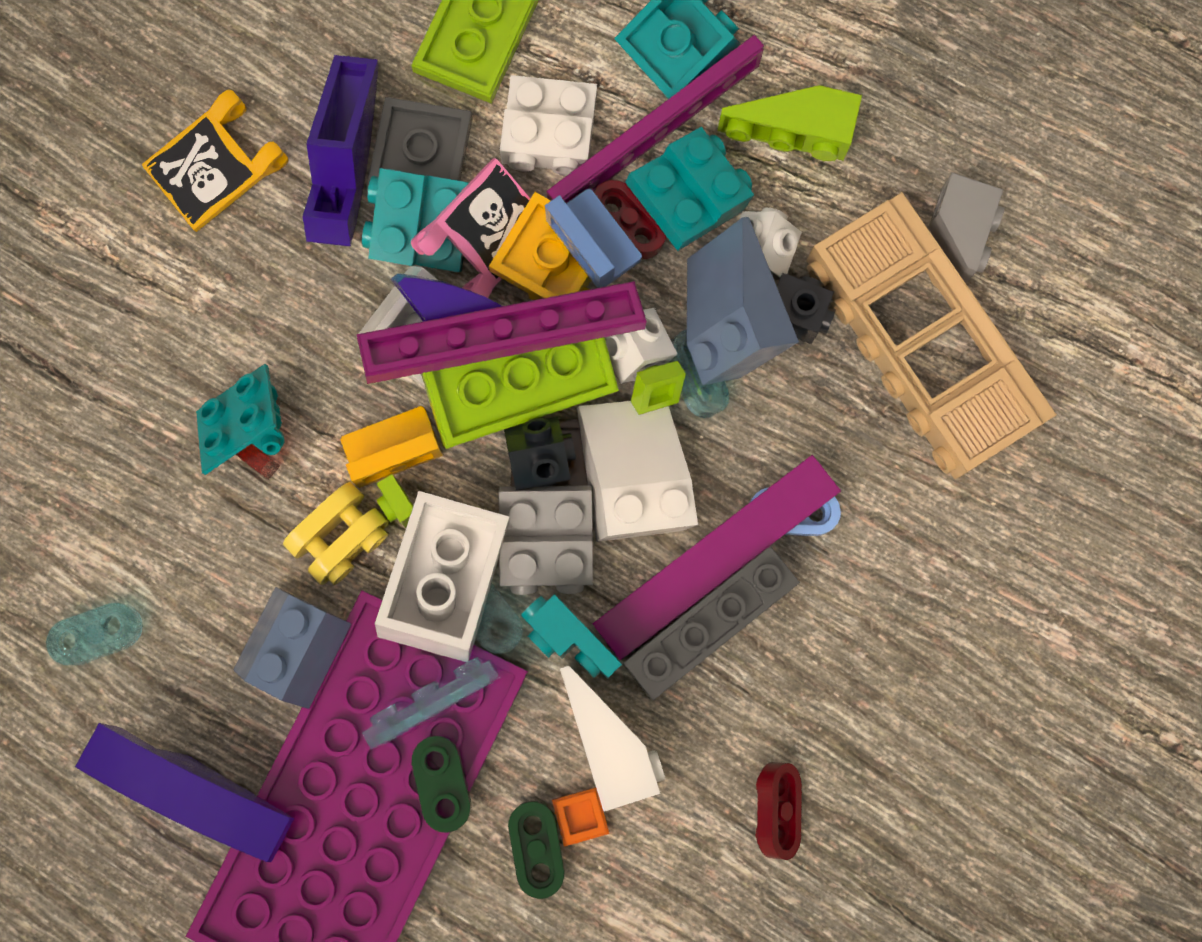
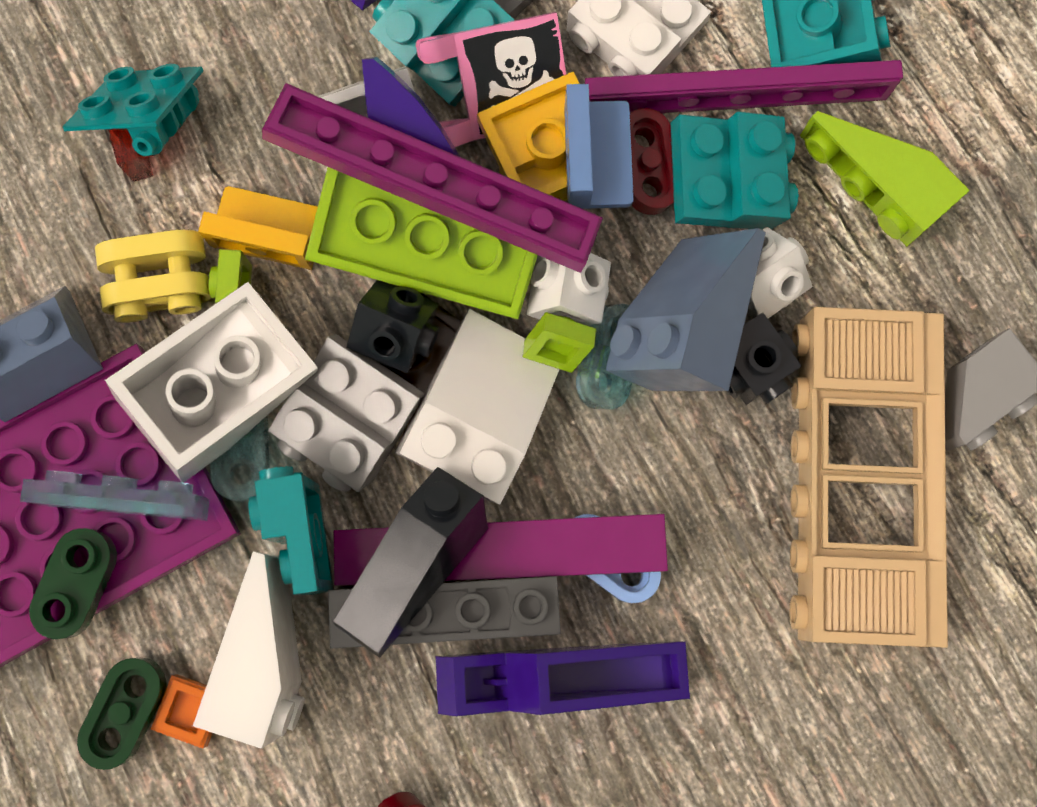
camera: 35 degrees right, 0 degrees up
(669, 601) = (413, 560): none -> slope
(818, 614) = (562, 678): none -> dark purple slope

